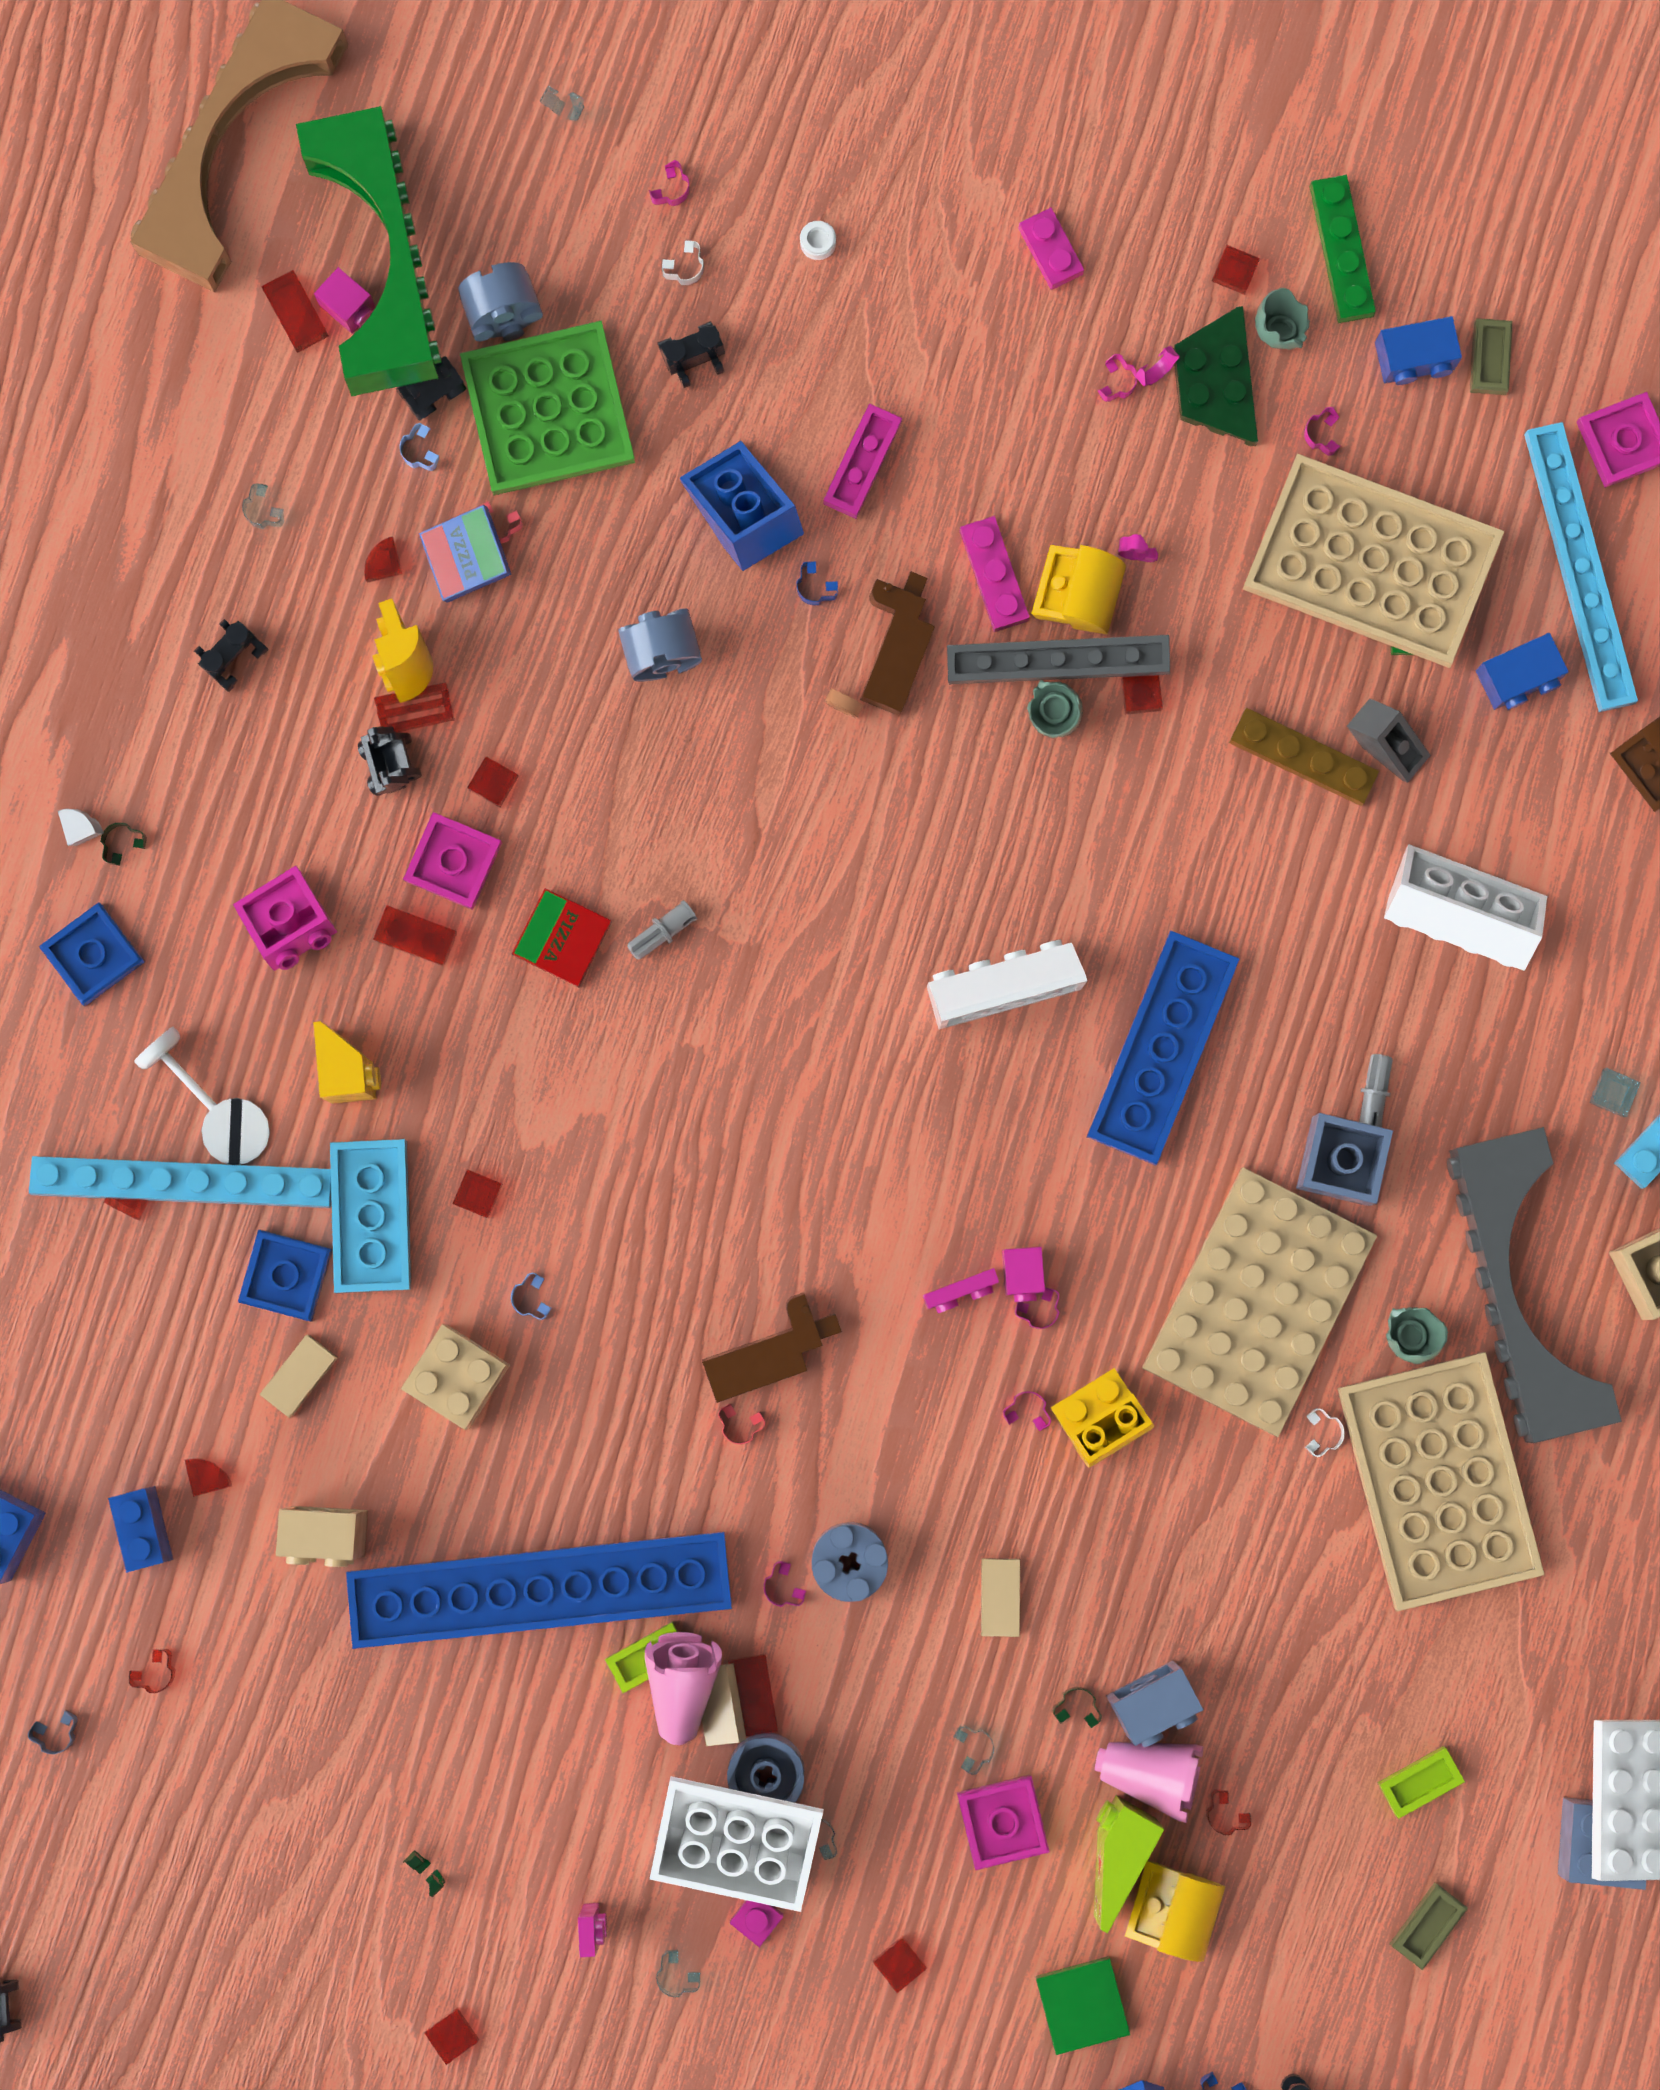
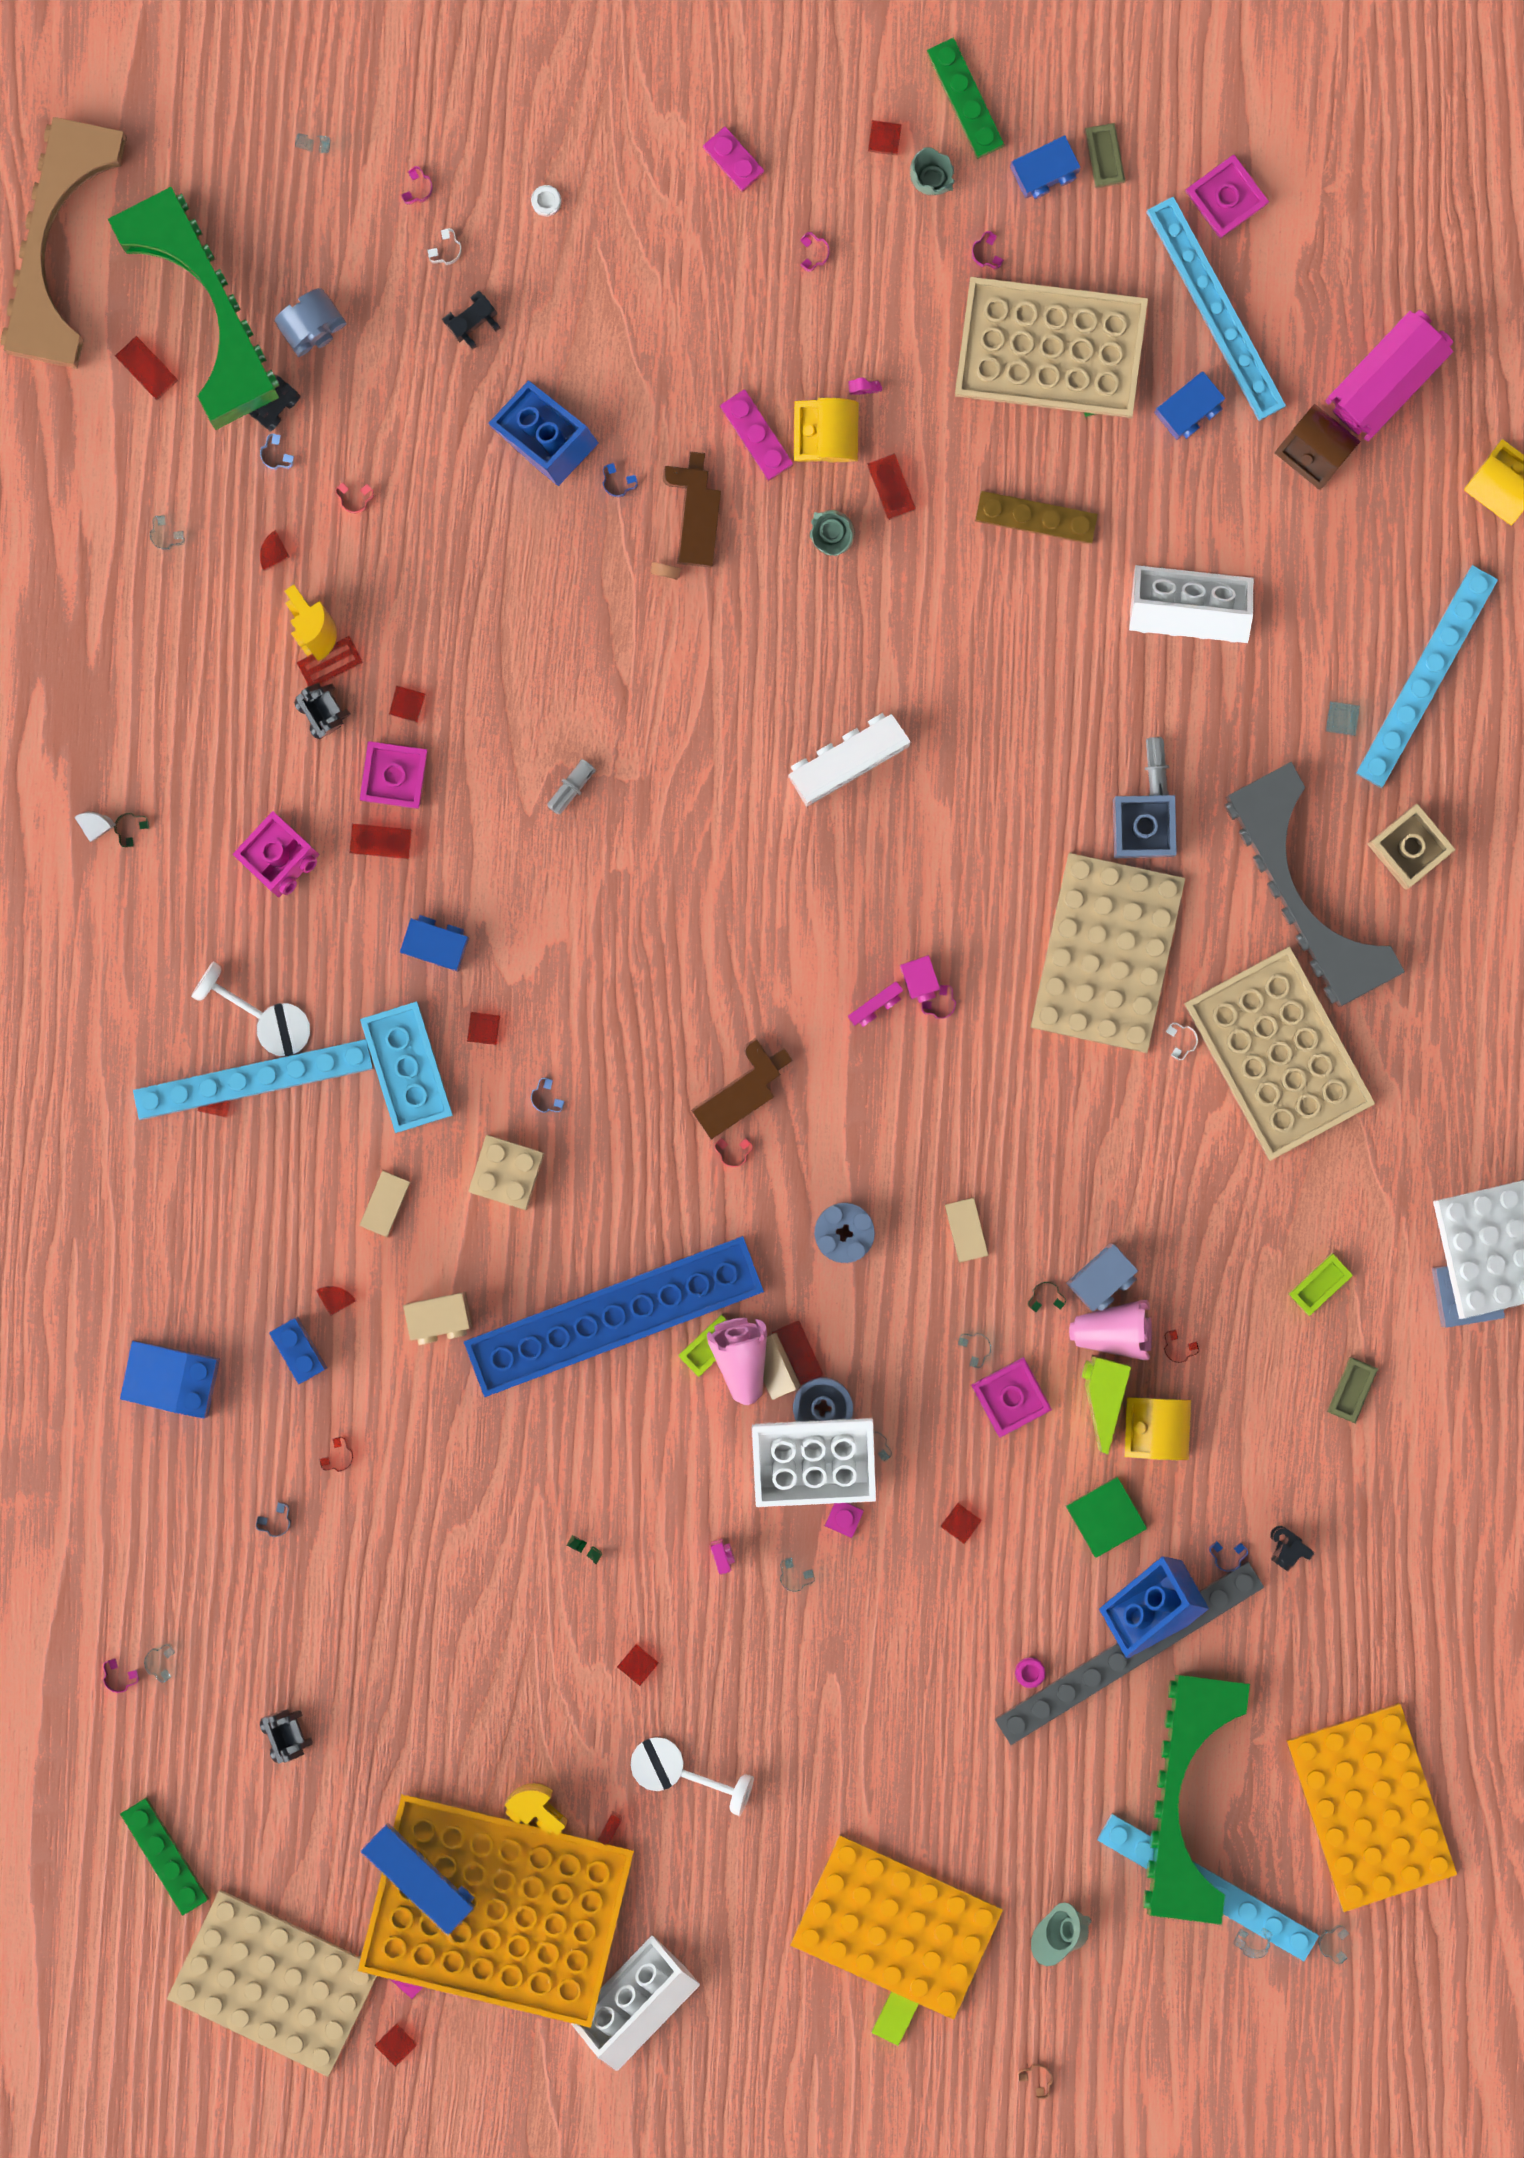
camera: 15 degrees left, 5 degrees up
(91, 954) = (132, 921): blue tile -> none
(226, 650) = (172, 656): black piece -> none
(285, 1275) = (352, 1130): blue tile -> none
(343, 1069) = (356, 960): yellow slope -> none
(345, 300) = (185, 351): dark pink brick -> none
(445, 1075) = (435, 944): none -> blue brick
(465, 553) = (336, 529): tile -> none
(547, 408) = (368, 394): bright green plate -> none
(561, 937) = (494, 812): tile -> none
(660, 645) = (510, 563): sand blue brick -> none
(797, 1593) = (810, 1267): dark pink piece -> none
(862, 461) = (629, 372): dark pink plate -> none
(1039, 1423) = (962, 1090): dark pink piece -> none
(1059, 659) = (824, 492): dark grey plate -> none
(1102, 1418) = (1008, 1073): yellow brick -> none
(1161, 368) = (843, 236): dark pink piece -> none
(1163, 1048) = (983, 776): blue plate -> none
(1216, 378) = (891, 230): dark green wing -> none
(1389, 739) = (1099, 487): dark grey slope -> none
(1415, 1334) = (1232, 946): sand green hair -> none

